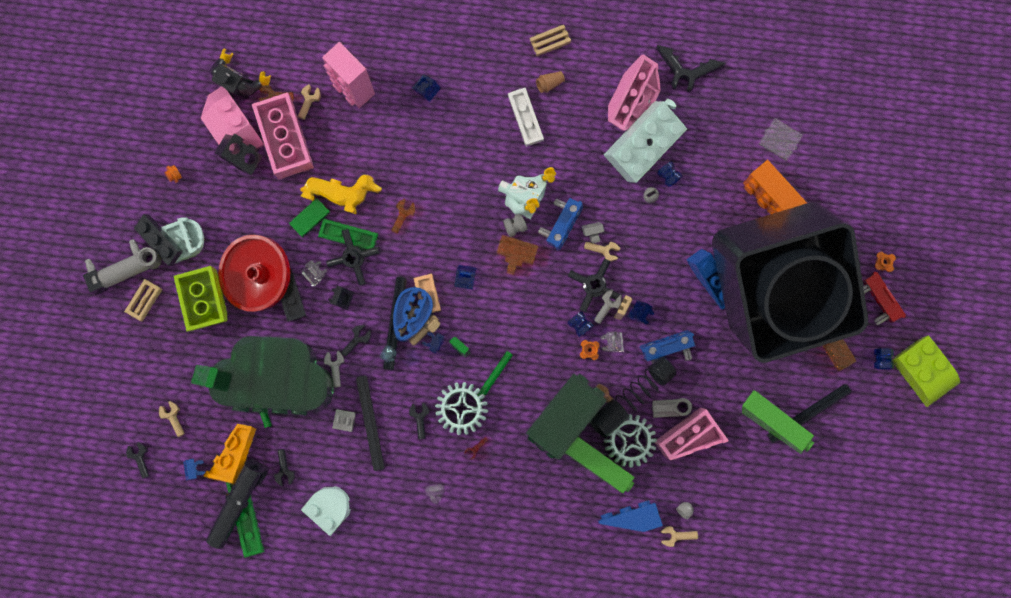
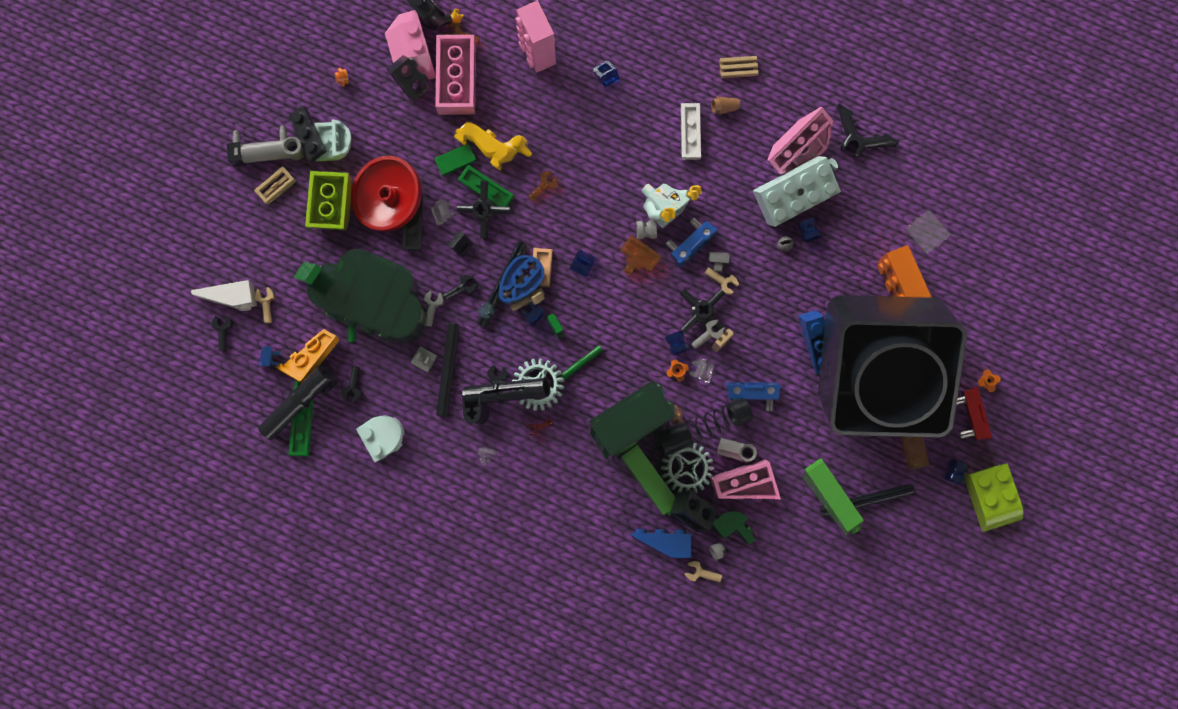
camera: 15 degrees right, 0 degrees up
(140, 419) = (235, 295): none -> white slope
(308, 100) = (491, 49): tan bar -> none
(413, 437) = (483, 396): none -> black piece
(640, 312) = (737, 350): clear blue tile -> none
(650, 480) = (693, 511): none -> black brick
(689, 477) = (731, 521): none -> dark green brick

